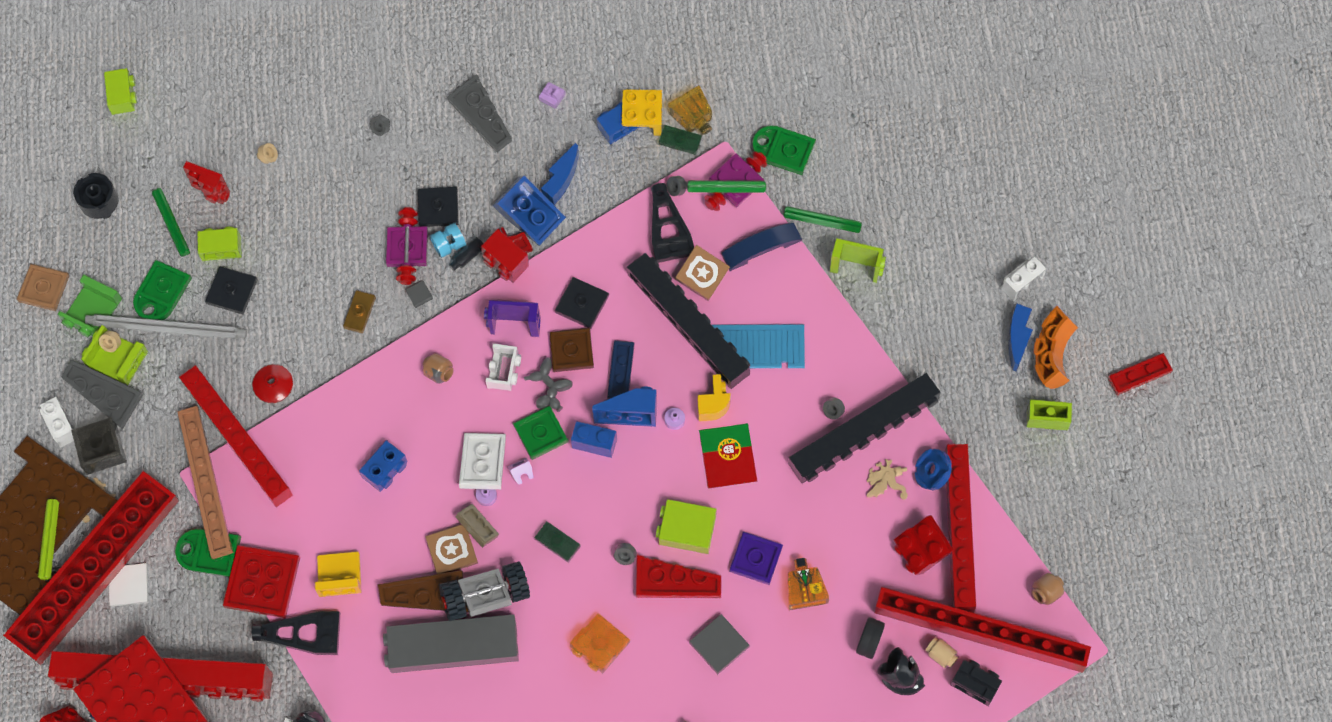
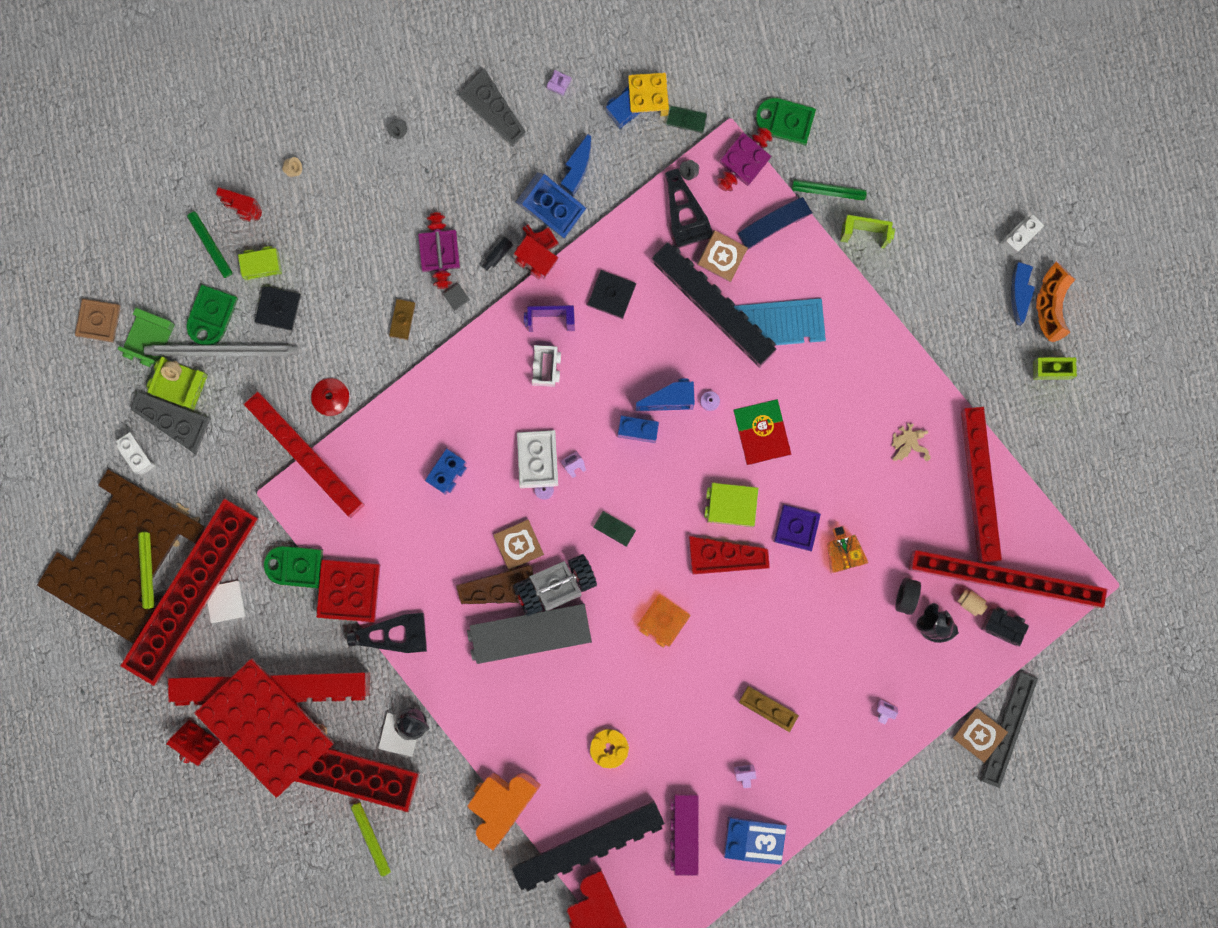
camera: 10 degrees left, 15 degrees up
(96, 196) = (128, 217): black brick -> none
(99, 446) = (177, 475): clear smoke brick -> none
(119, 91) = (139, 113): lime brick -> none
(205, 482) = (282, 501): nougat plate -> none
(338, 574) = (418, 577): yellow bracket -> none
(437, 368) = (484, 372): medium nougat head -> none
(438, 206) = (463, 207): black plate -> none
(441, 243) = (470, 242): medium azure wheel -> none
(477, 525) = (539, 520): dark tan plate -> none
(540, 432) = (587, 425): green tile -> none
(560, 385) = (594, 380): dark grey piece -> none
(571, 350) = (607, 342): reddish brown tile -> none
(620, 368) = (655, 358): dark blue tile -> none
(625, 554) = (678, 535): dark grey tile -> none
(692, 111) = (696, 89): clear yellow torso -> none
(714, 405) = (745, 387): yellow brick -> none
(719, 644) = (771, 611): dark grey tile -> none
(726, 186) = (738, 169): green axle -> none
(833, 408) = (856, 379): dark grey tile -> none
(864, 428) = (886, 396): black brick -> none
(922, 546) = (949, 505): red plate -> none
(941, 473) = (962, 432): blue tile -> none
(1047, 589) = (1063, 535): medium nougat head -> none
(1140, 374) = (1134, 318): red tile -> none

